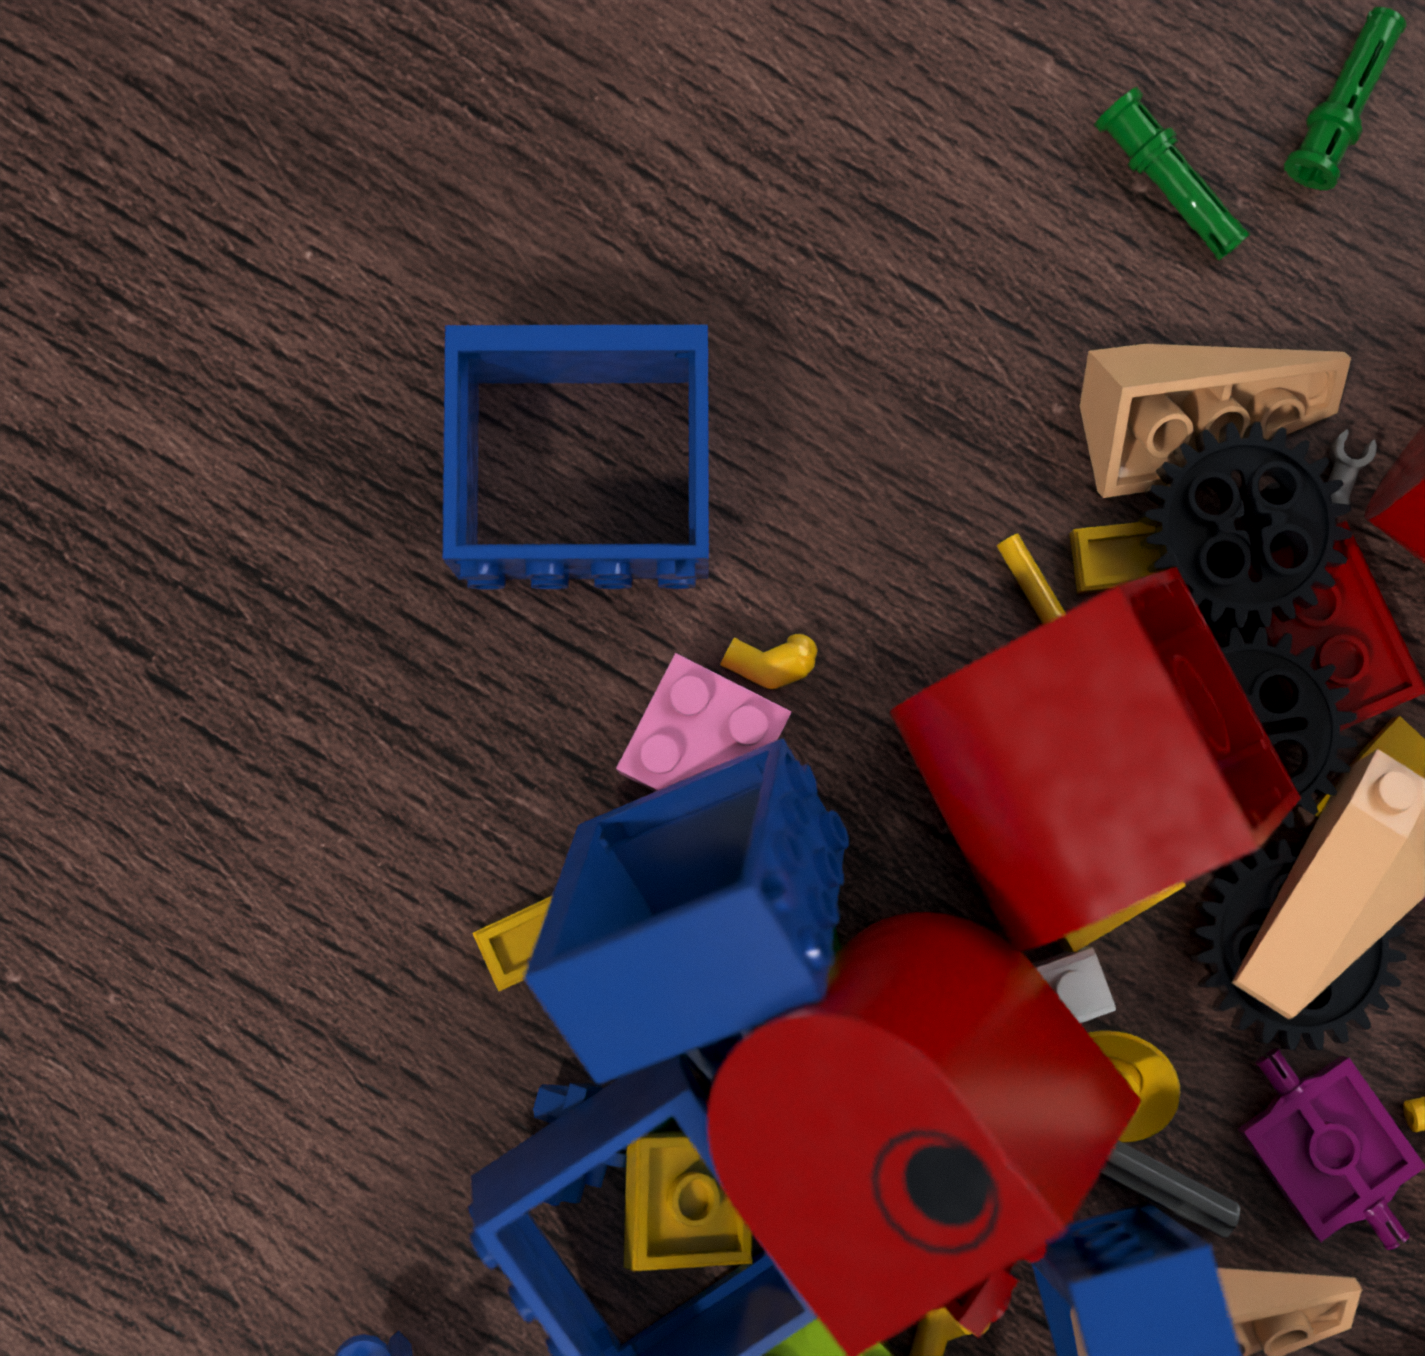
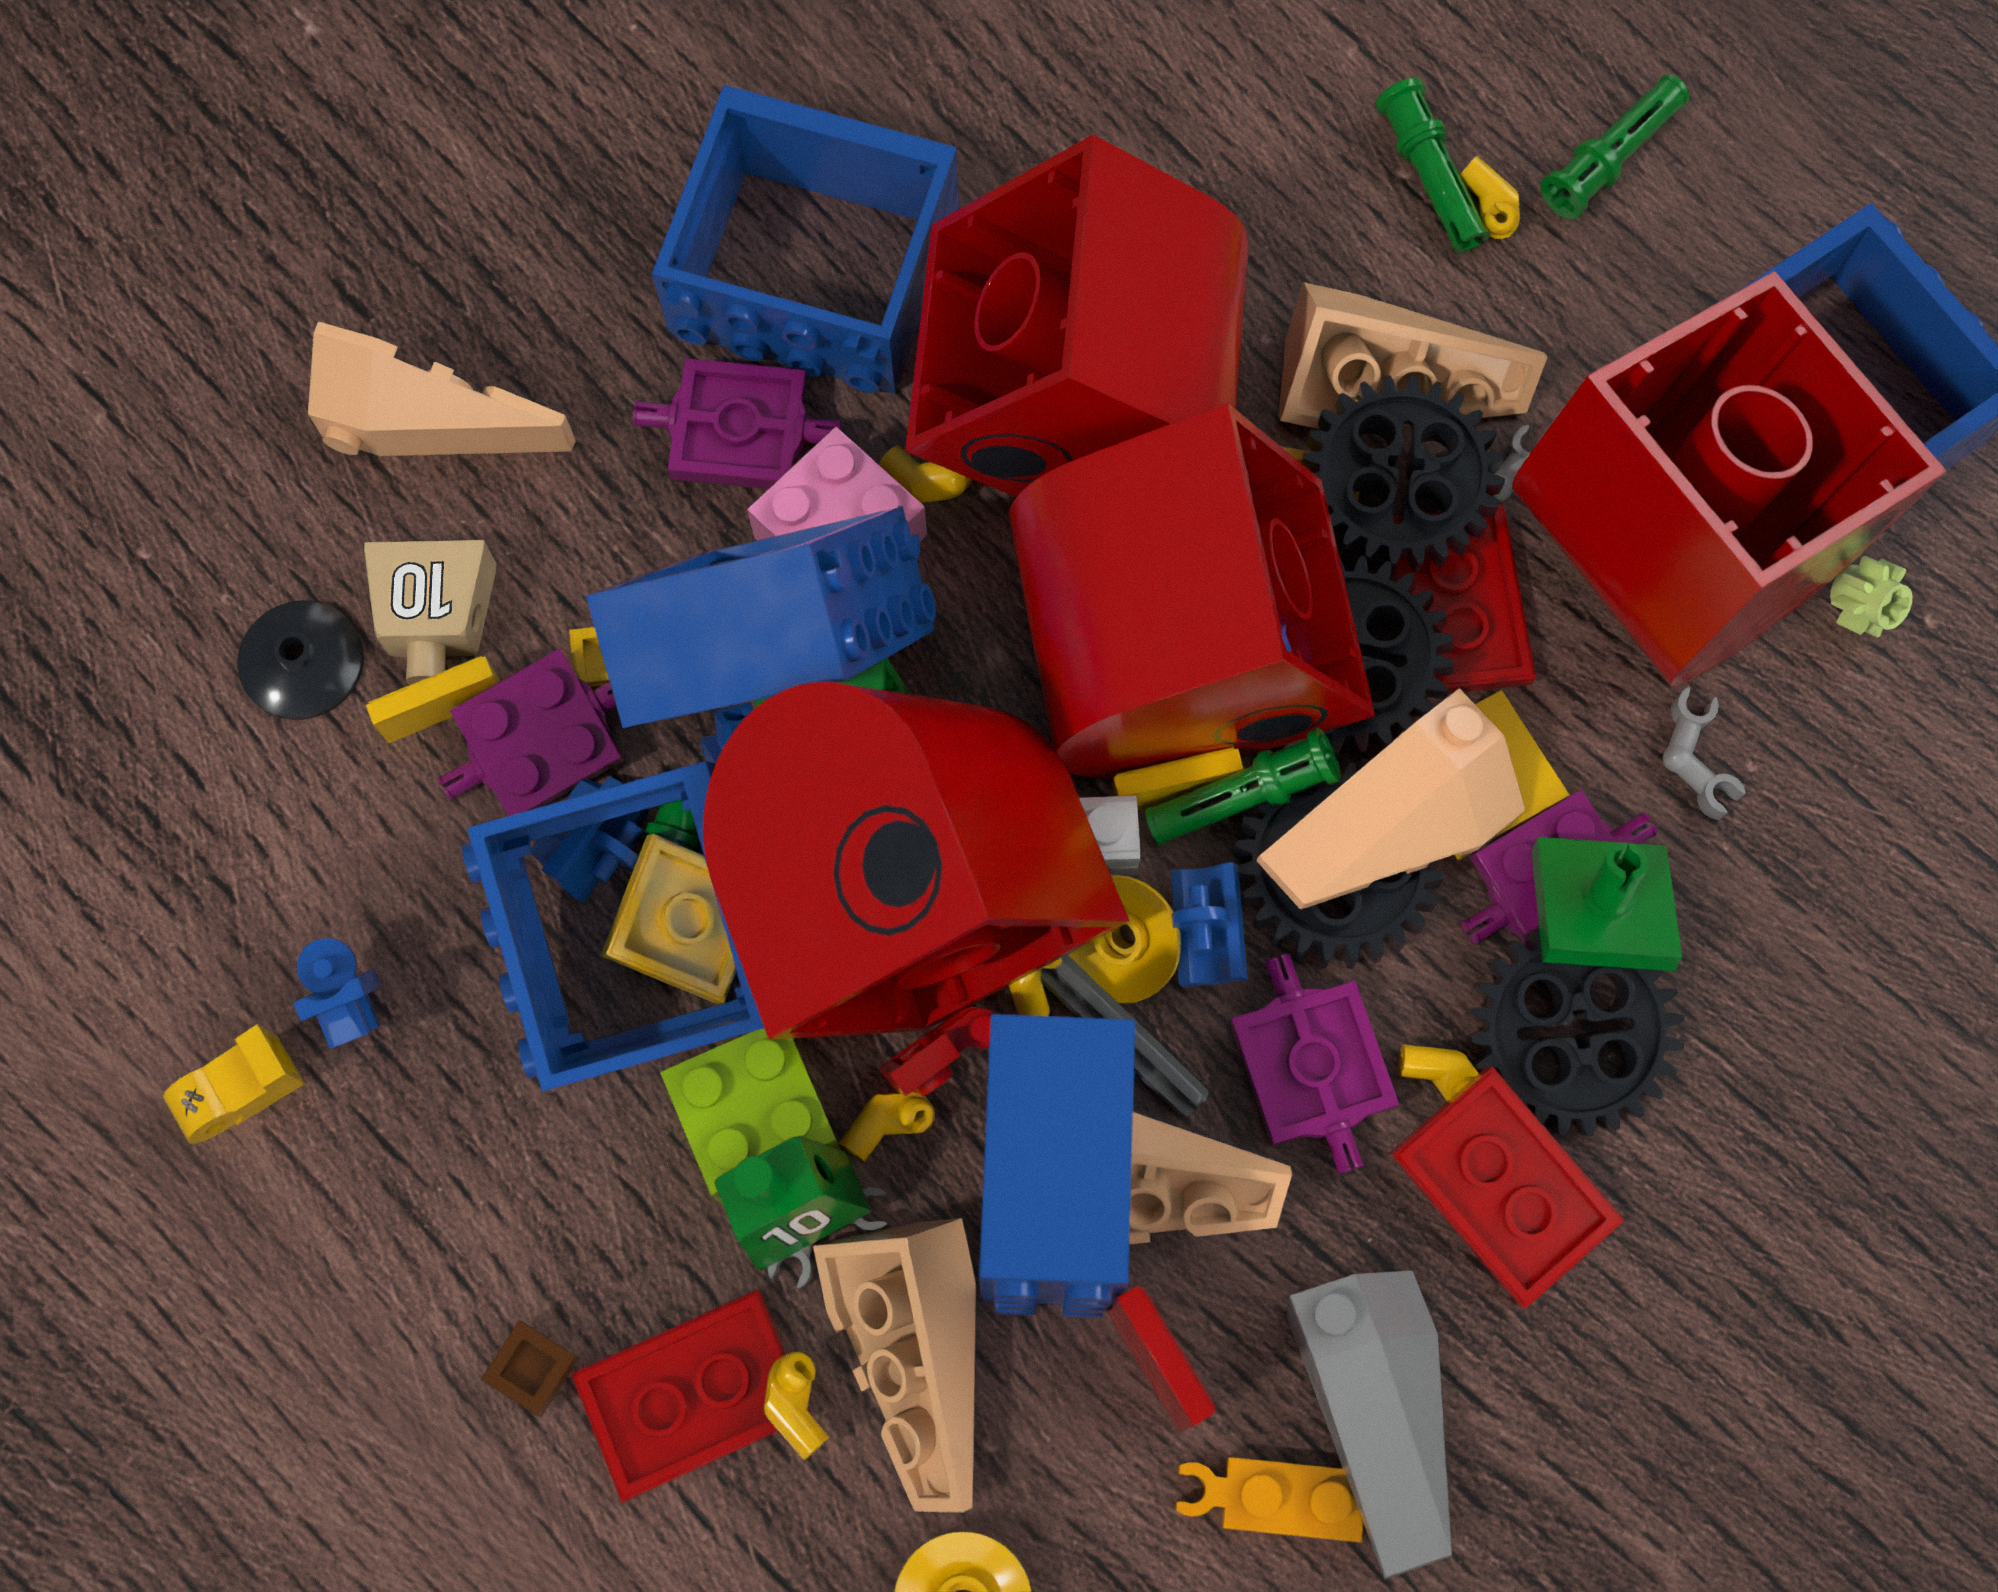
camera: 20 degrees right, 10 degrees down
(207, 759) = (394, 409): none -> light nougat wedge
(243, 1033) = (313, 681): none -> black dish
(323, 951) = (429, 600): none -> tan torso
(365, 1049) = (430, 699): none -> yellow tile
(477, 1056) = (535, 735): none -> magenta plate
(566, 665) = (735, 423): none -> magenta plate
(903, 500) = (1074, 316): none -> red brick
(1197, 1048) = (1209, 924): none -> blue hips
(1210, 893) = (1275, 785): none -> green pin
(1244, 190) = (1496, 198): none -> yellow arm

